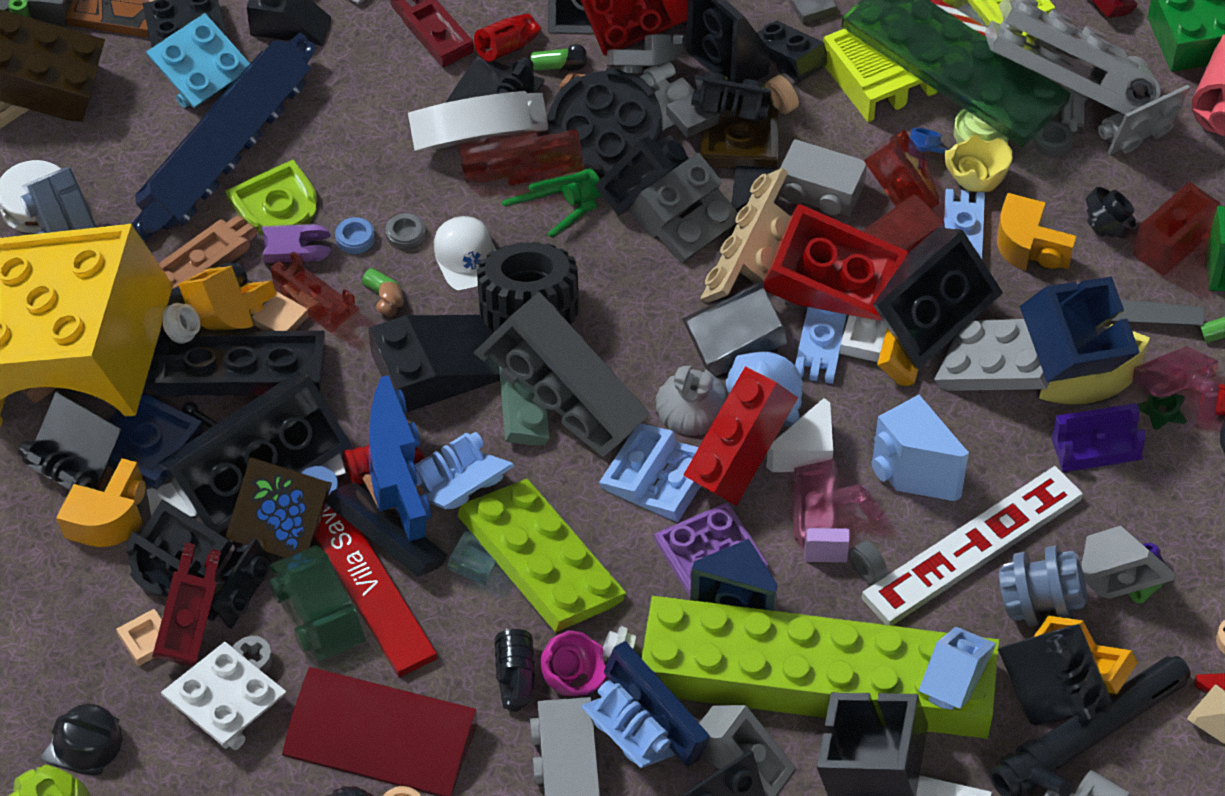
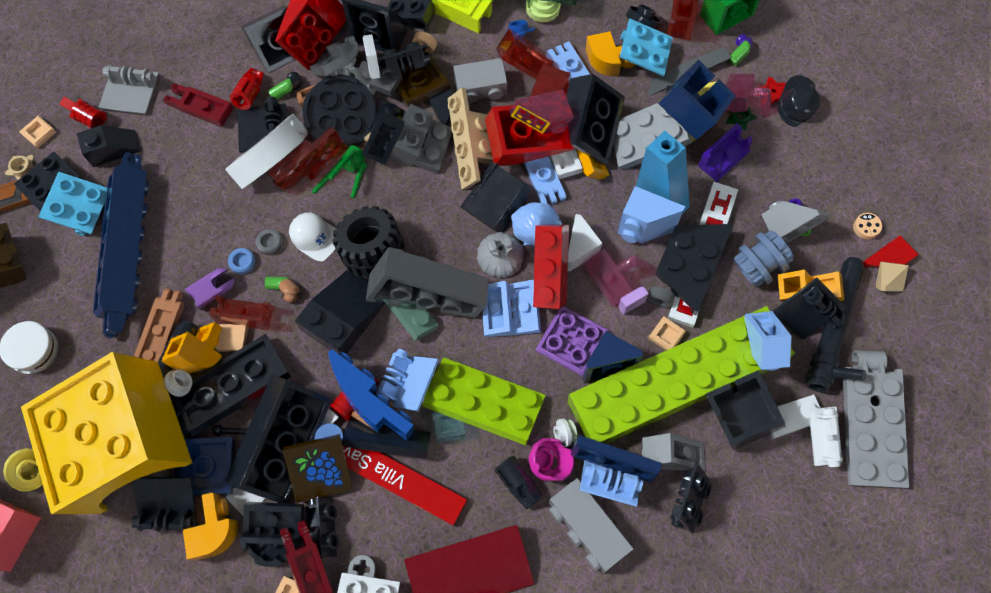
camera: 30 degrees left, 15 degrees up
(57, 202) = (53, 352): sand blue brick -> none
(275, 198) = (179, 264): lime tile -> none
(317, 603) = (379, 512): clear green brick -> none
(693, 64) = (371, 57): none -> white tile
(845, 607) = (666, 334): none -> light nougat tile
(862, 243) = (544, 112): none -> clear pink slope
(947, 540) = (692, 260): none -> black wing
(973, 403) = (665, 170): none -> dark azure slope
(979, 163) = (558, 26): light yellow hair -> none
(1081, 245) = (645, 47): none -> medium azure hinge

